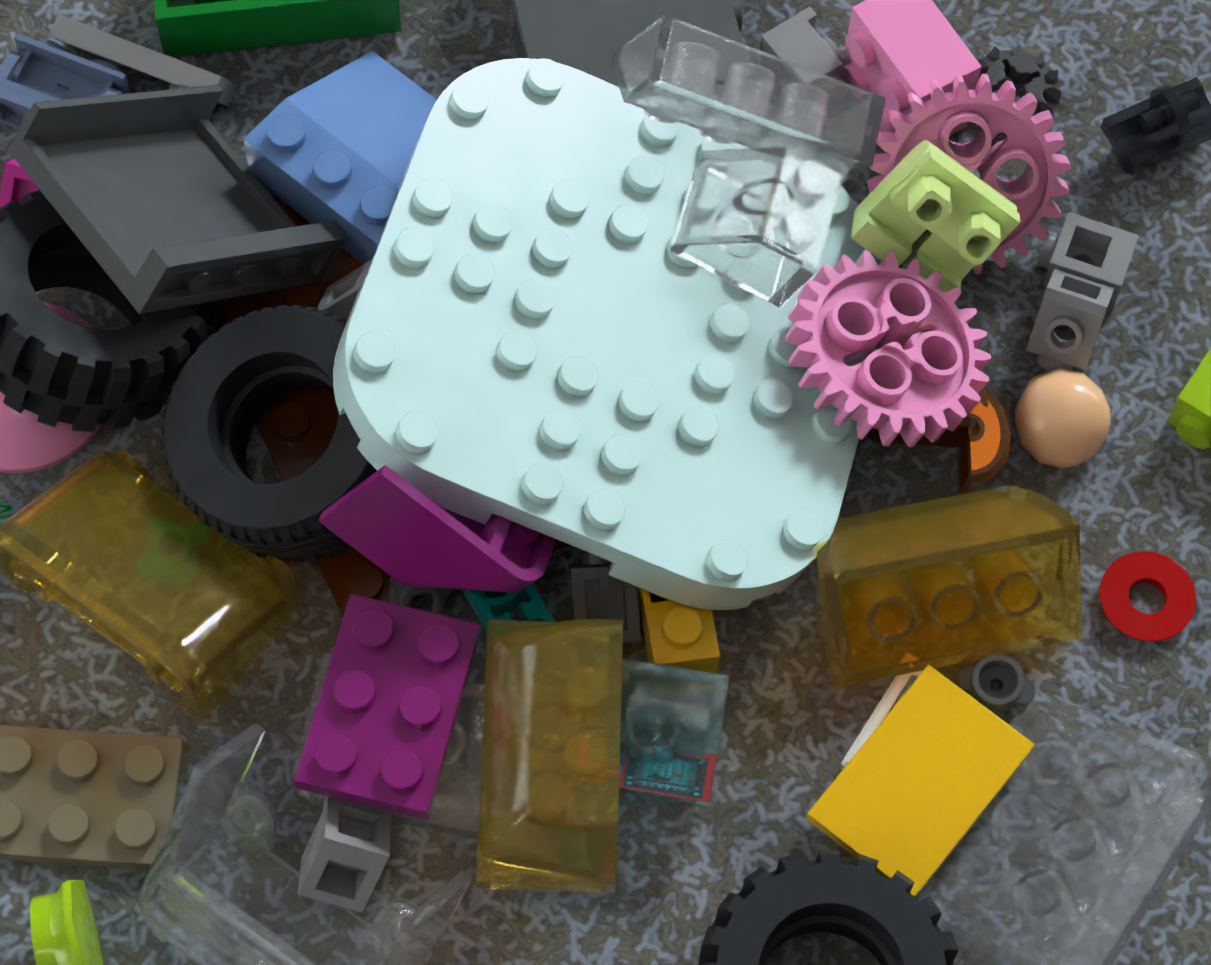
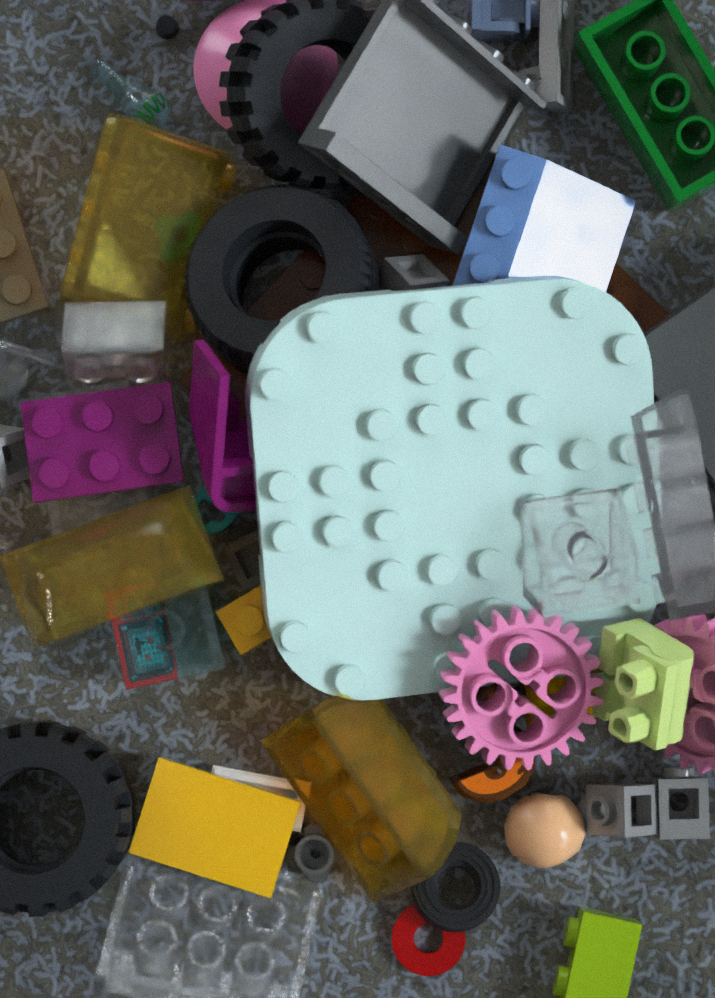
camera: 70 degrees right, 20 degrees up
(270, 645) = (116, 341): none -> clear slope
(1133, 521) = (482, 903): none -> black tyre

